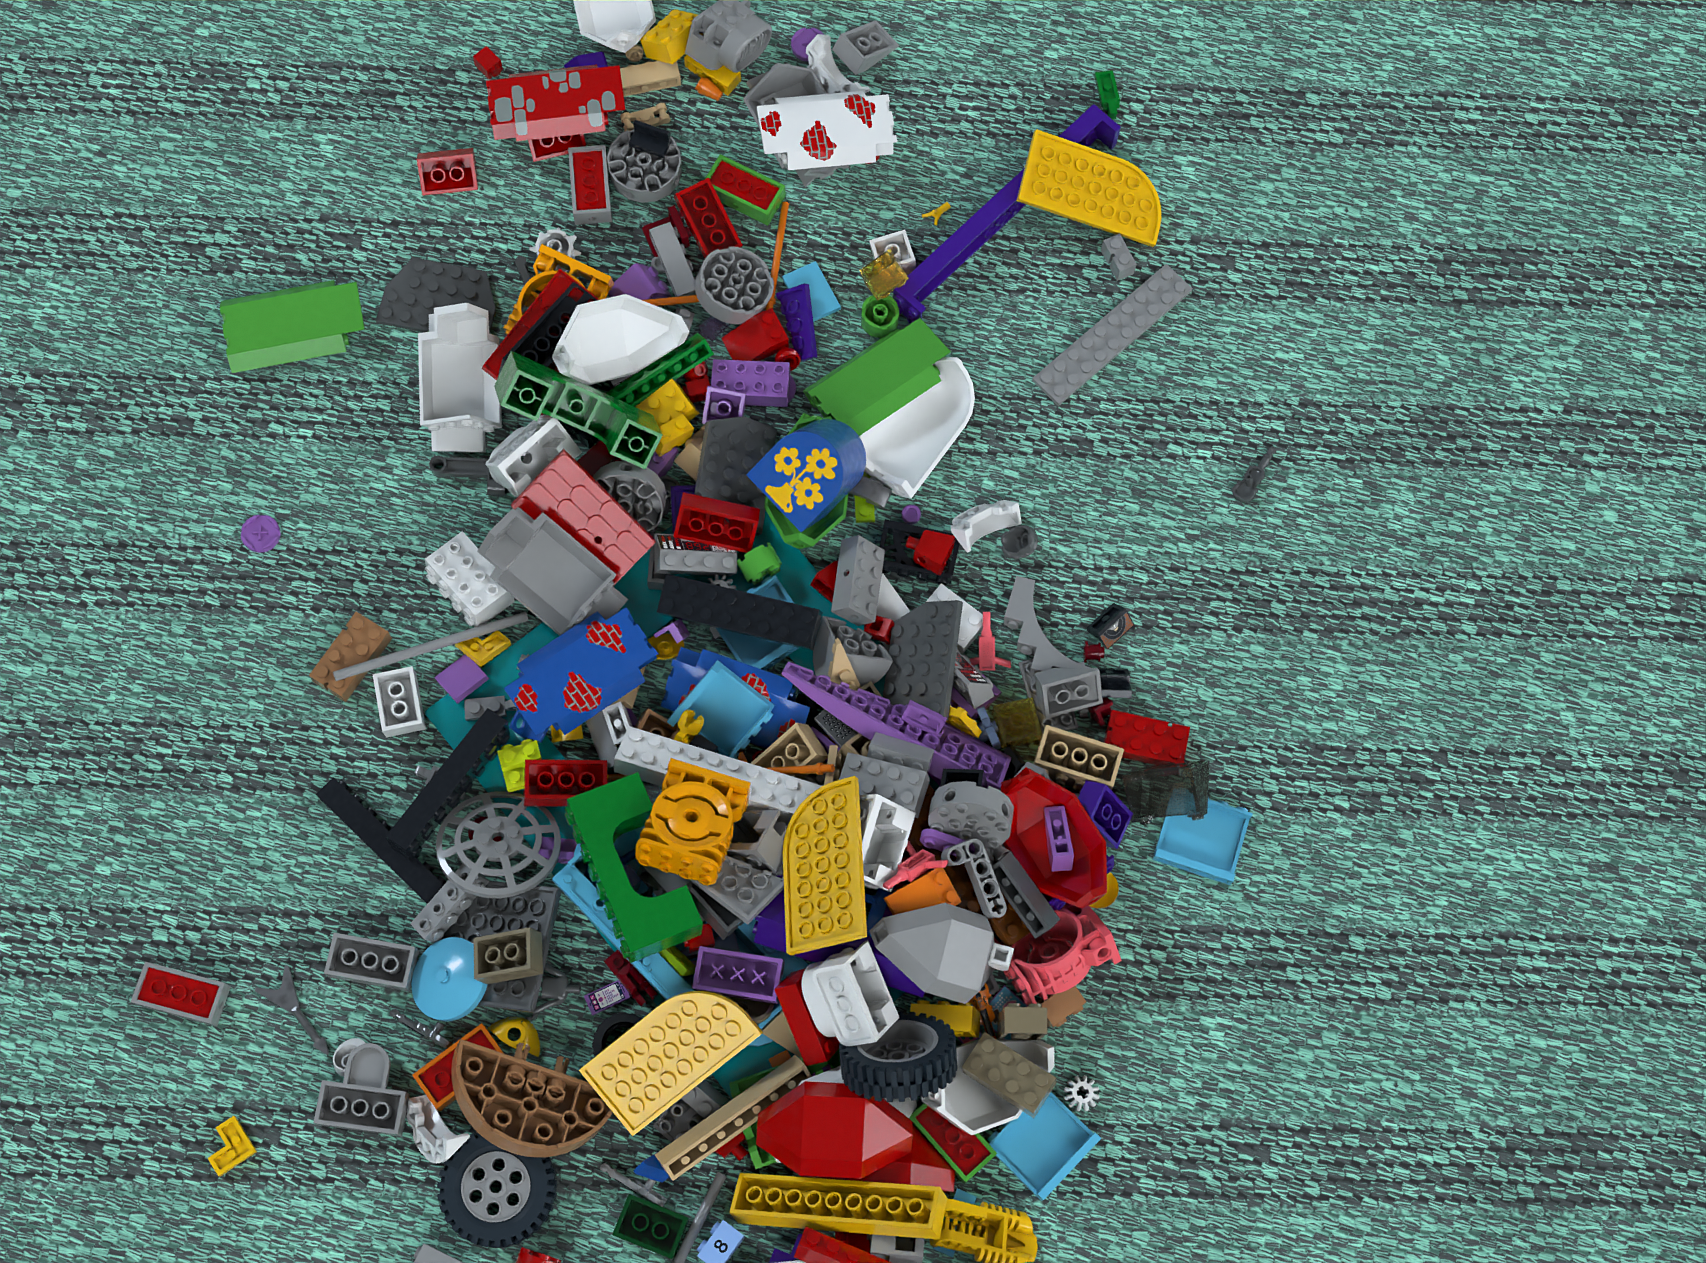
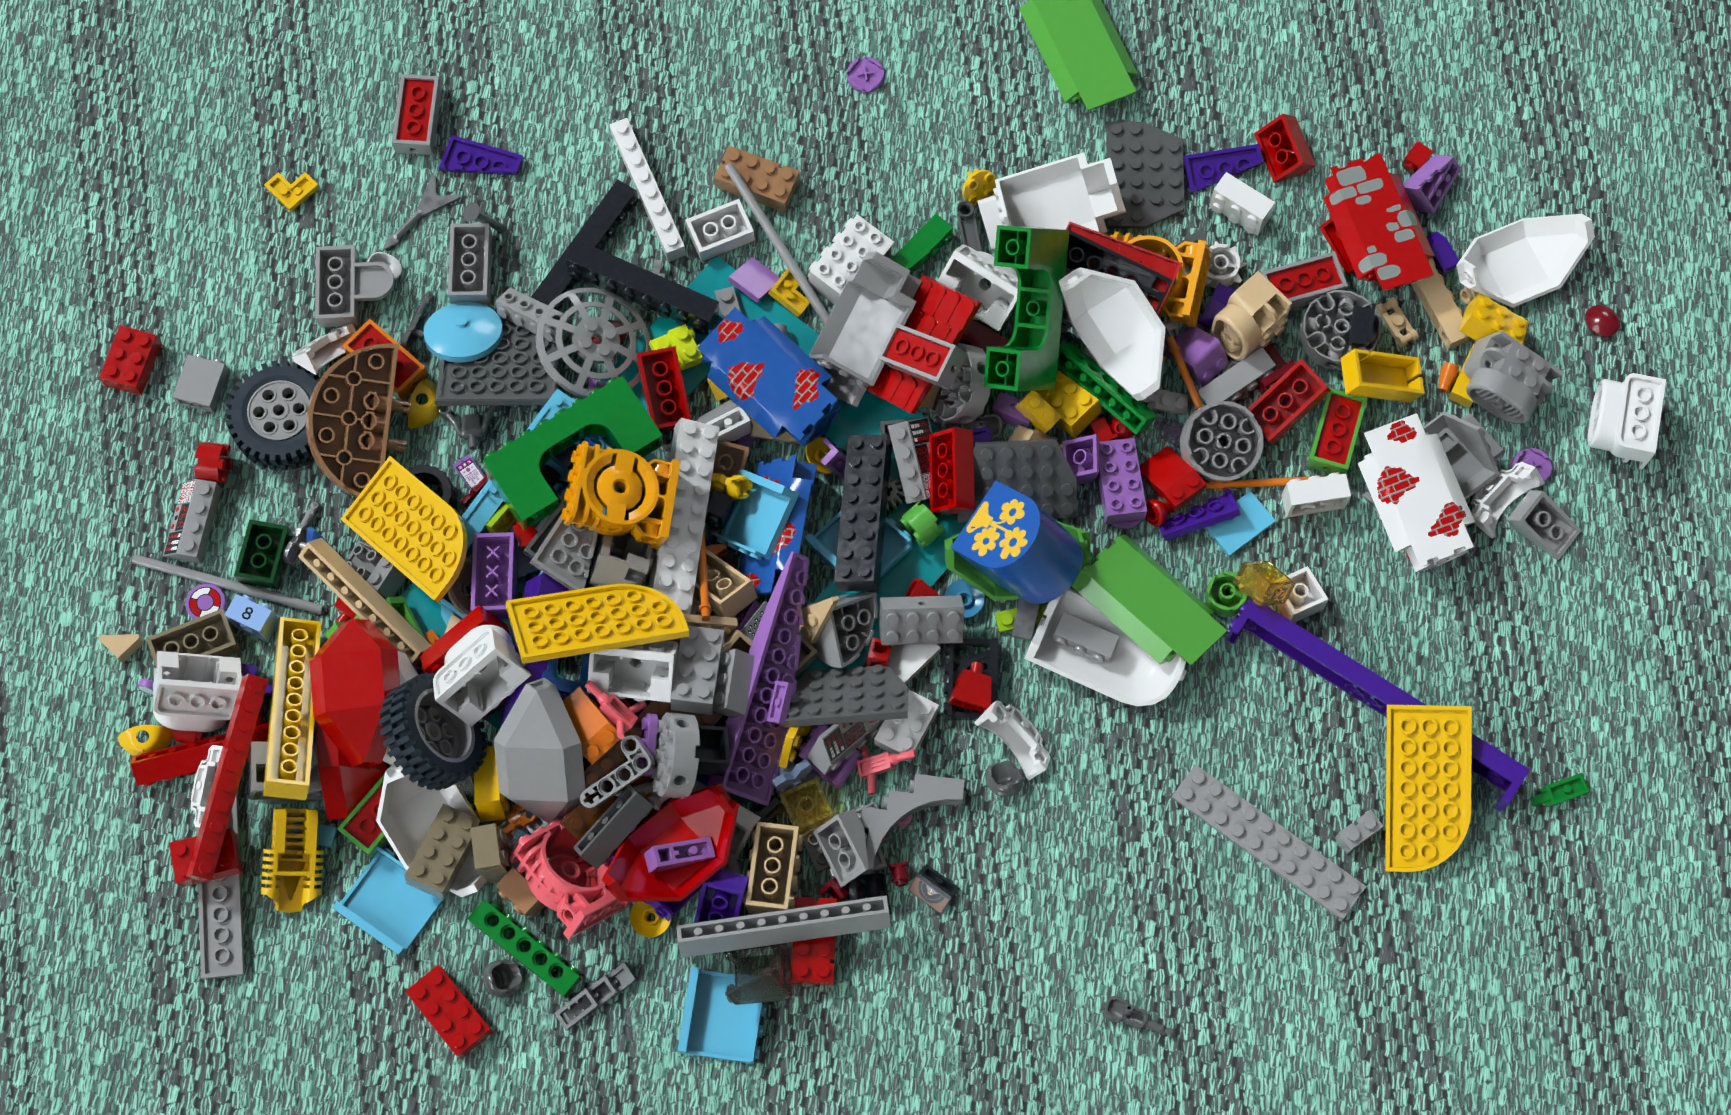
camera: 85 degrees right, 0 degrees up
(247, 941) = (475, 157): none -> dark purple wing
(323, 942) = (472, 212): none -> dark grey piece
(336, 765) = (647, 190): none -> white brick
(416, 445) = (978, 186): none -> yellow plate
(449, 235) = (1209, 167): none -> dark purple wing
(464, 511) = (924, 244): none -> green slope
(497, 217) = (1241, 204): none -> white brick
(508, 955) = (482, 369): dark tan brick -> none
(516, 53) = (1431, 183): none -> medium lavender wedge
(594, 258) = (1216, 303): none -> dark purple slope
(605, 515) = (922, 356): none -> brick
(621, 228) = (1251, 317): none -> tan brick
(701, 141) = (1382, 375): none -> yellow piece
(800, 219) = (1316, 494): none -> white brick
(833, 537) = (973, 595): none -> dark azure dish
(899, 443) = (1085, 637): none -> light grey brick
(911, 514) = (1014, 667): medium lavender tile -> none
(937, 212) = (1365, 634): yellow bar -> none
(1000, 957) = (549, 816): white brick -> none
(1084, 1087) = (450, 931): white gear -> none
(1137, 1039) = (503, 978): none -> dark grey hair
(1138, 758) = (783, 926): none -> light grey brick
(1152, 982) = (486, 911): none -> green brick
(1163, 1096) = (449, 1011): none -> red brick
(1166, 953) = (596, 996): none -> dark grey slope

